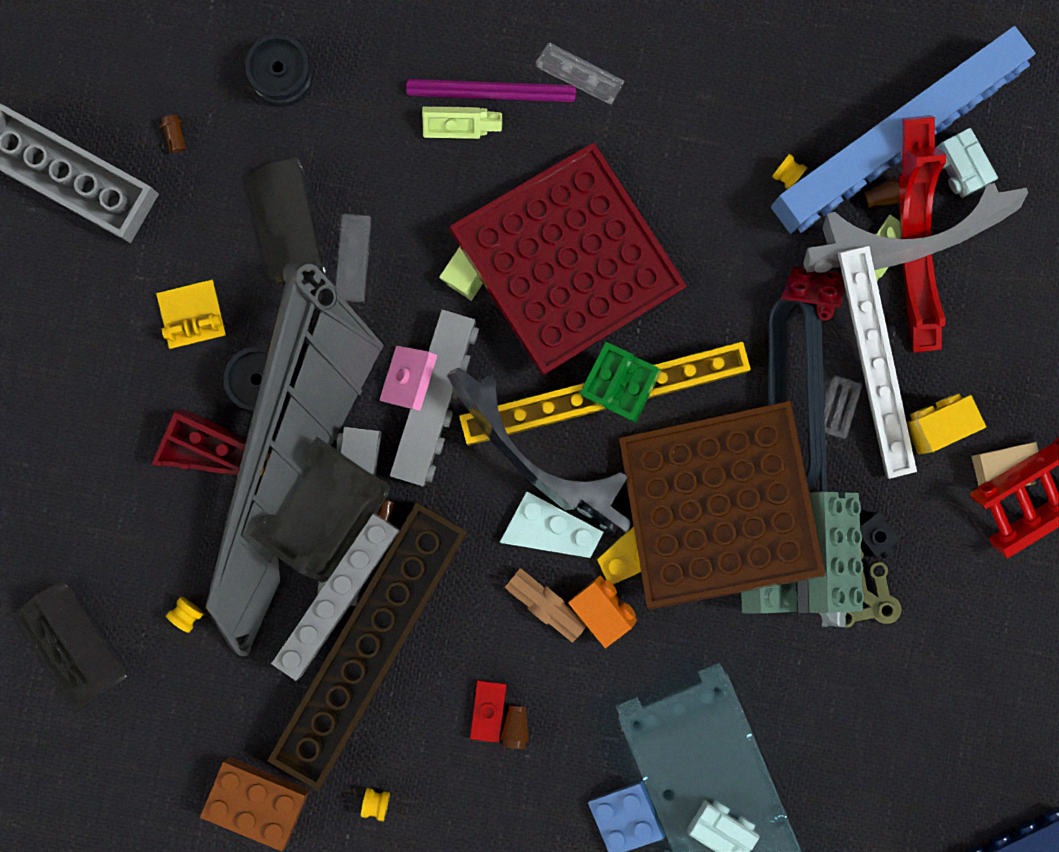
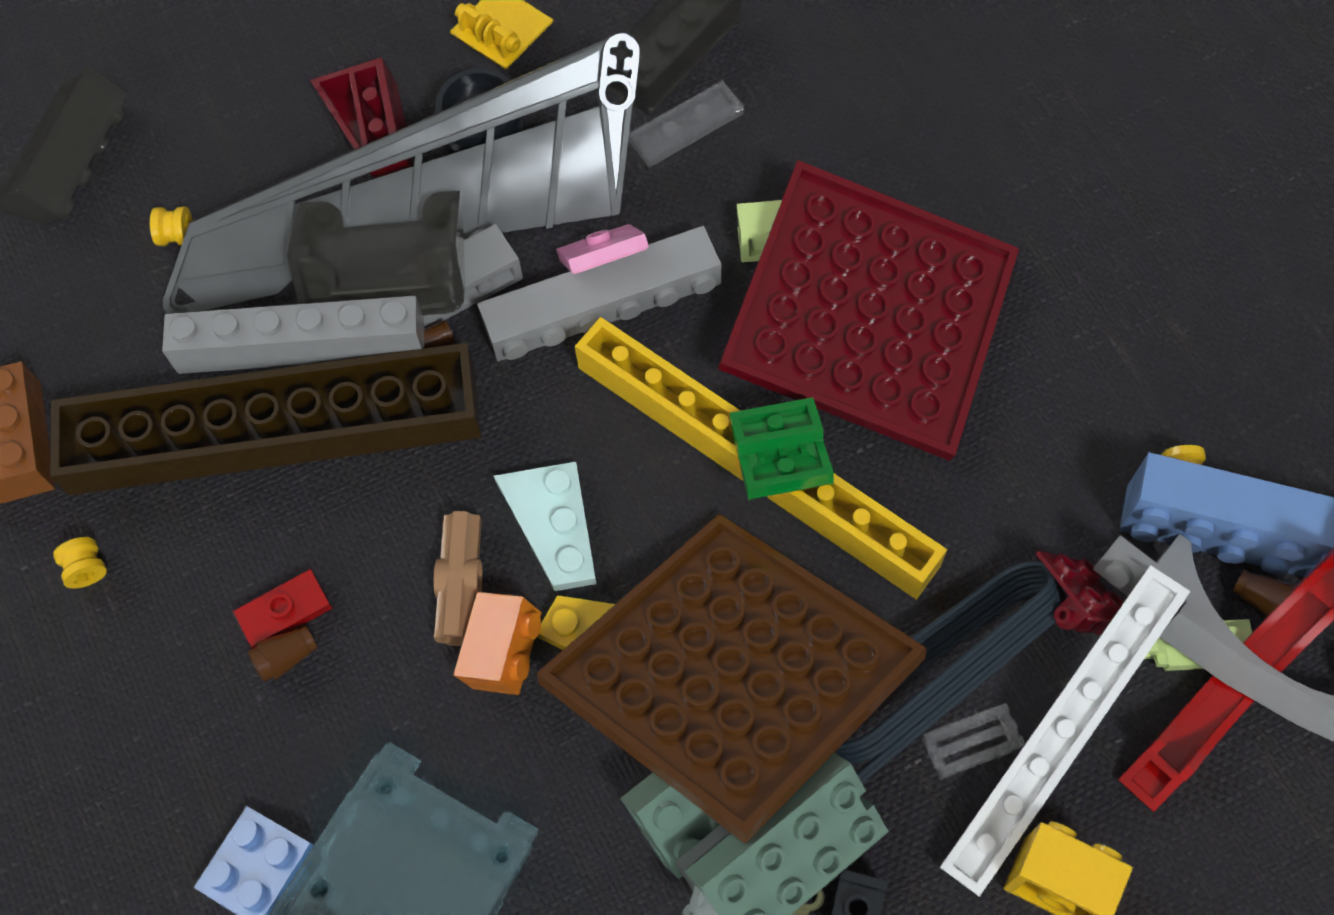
camera: 60 degrees right, 20 degrees down
(459, 122) = (915, 113): yellowish green hinge -> none
(491, 90) = (978, 124): magenta axle -> none
(579, 73) = (1076, 186): clear tile -> none
(591, 497) = (625, 522): black slope -> none

